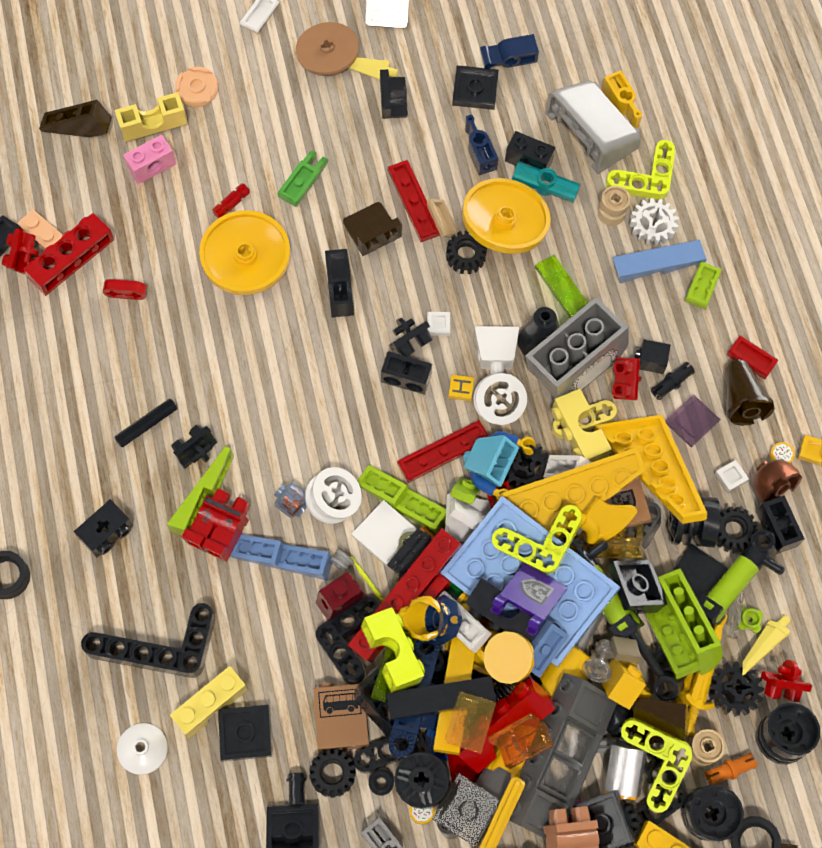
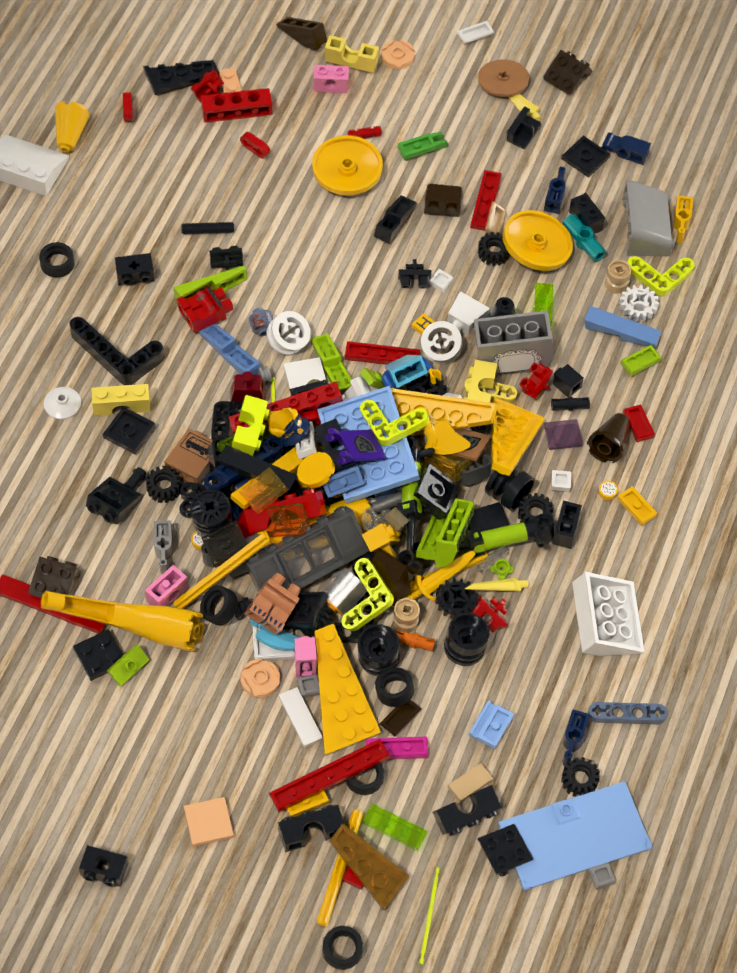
camera: 35 degrees right, 10 degrees down
(406, 372) = (393, 292): black brick -> none
(775, 479) = (588, 495): copper cylinder -> none

